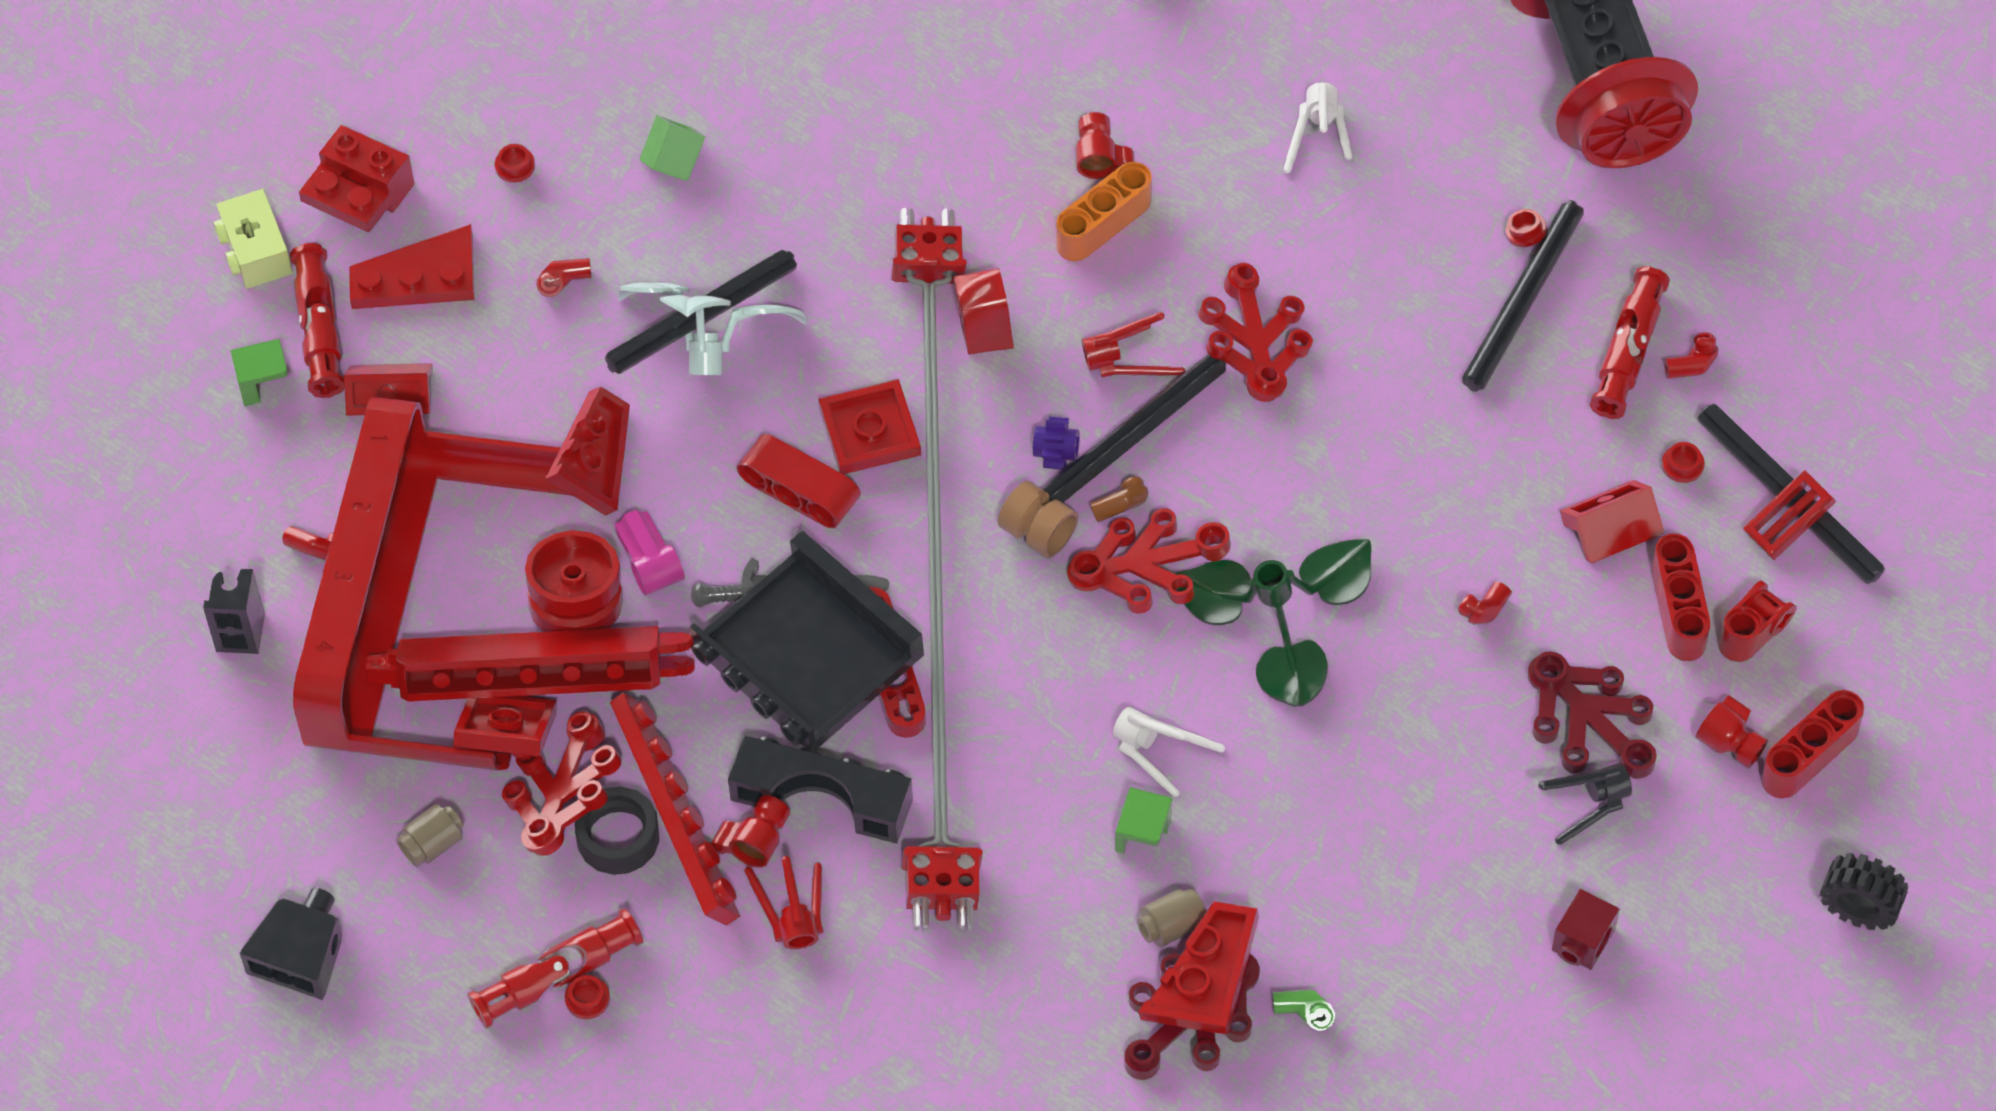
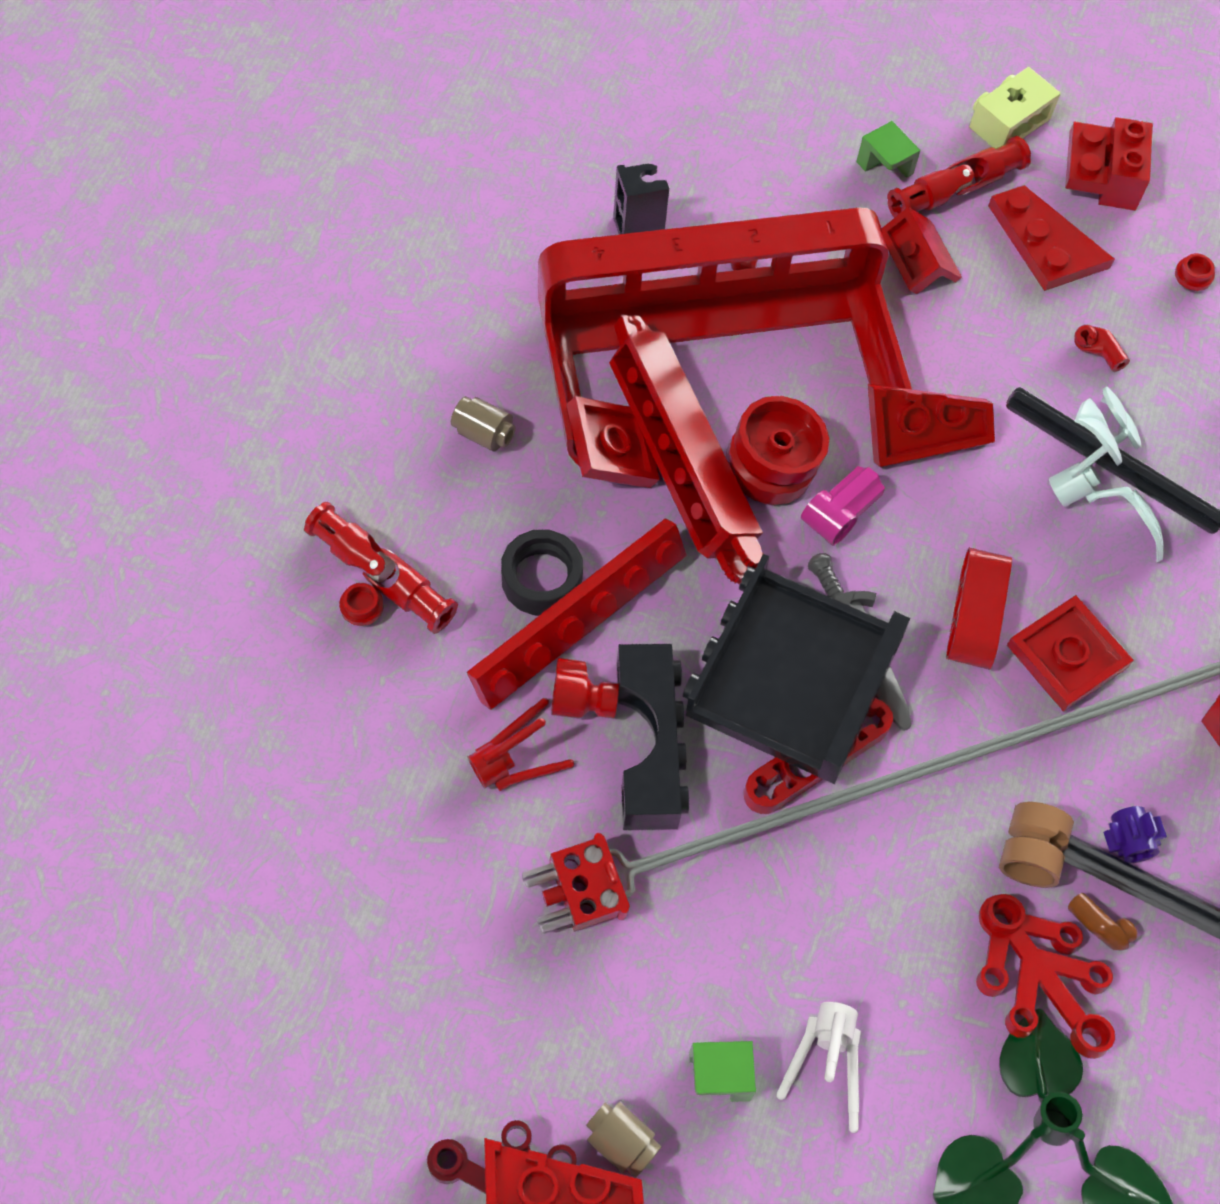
camera: 65 degrees right, 5 degrees up
(296, 945) = (340, 358): black torso -> none
(545, 830) = (514, 510): red plant -> none

